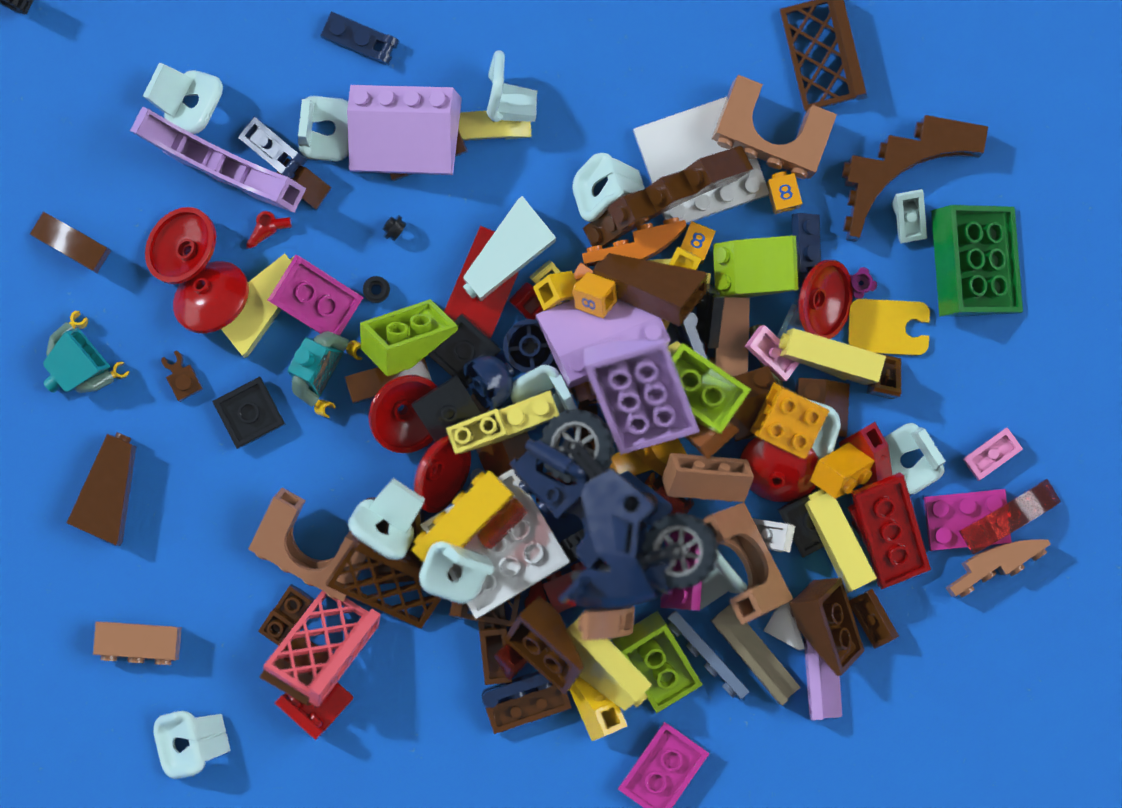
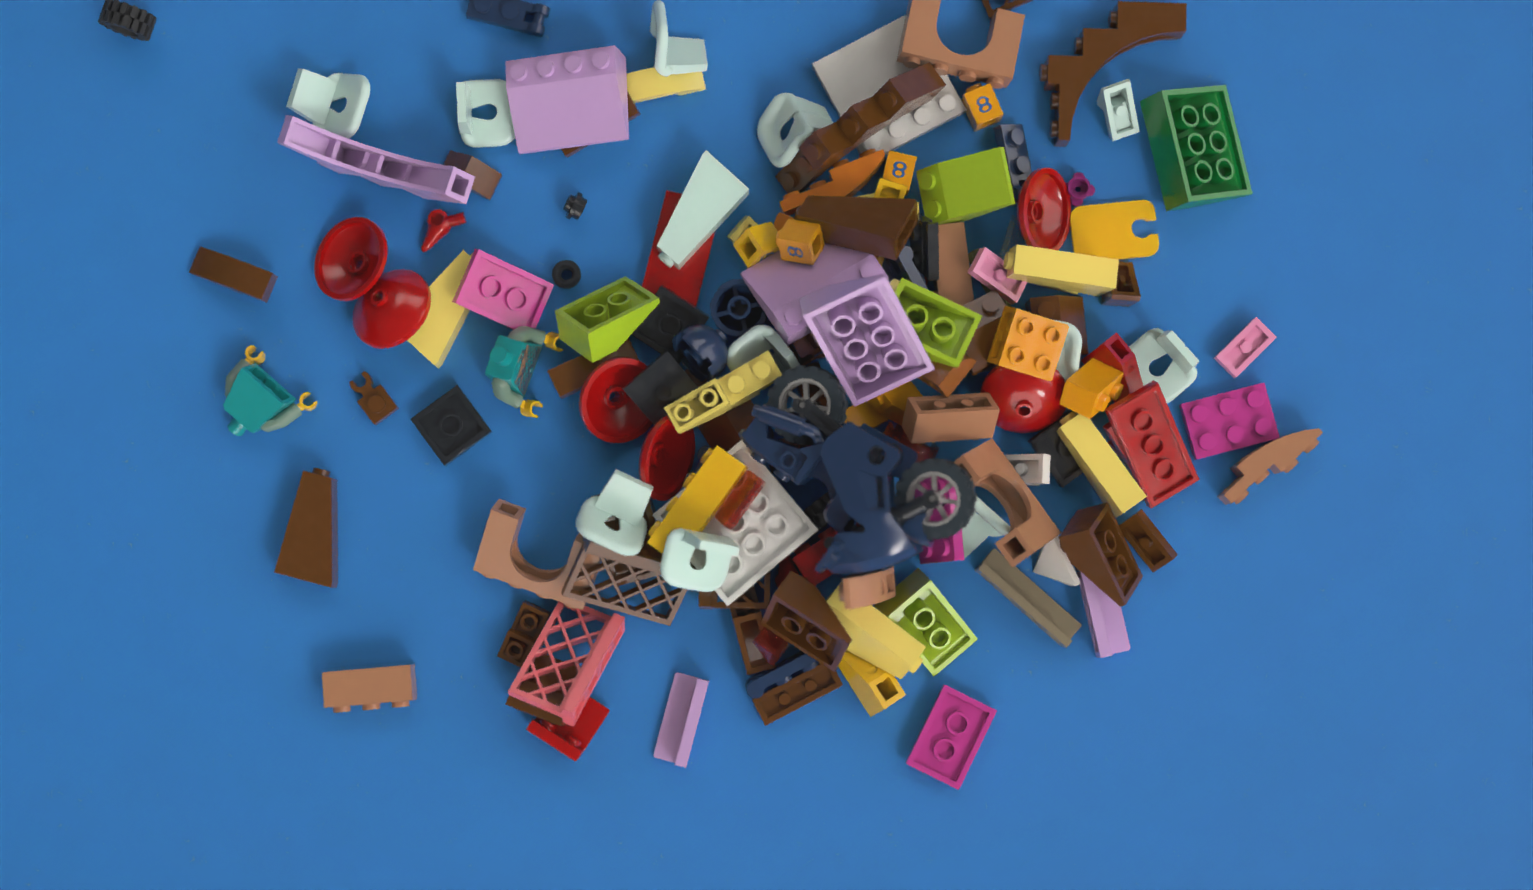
camera: 10 degrees left, 0 degrees up
(205, 737) = (458, 777): light aqua piece -> none
(271, 148) = (432, 140): plate -> none
(418, 715) = (681, 719): none -> lavender panel
(526, 301) = (728, 262): red slope -> none
(699, 647) = (986, 615): sand blue plate -> none
(1010, 516) = (1274, 411): clear red slope -> none

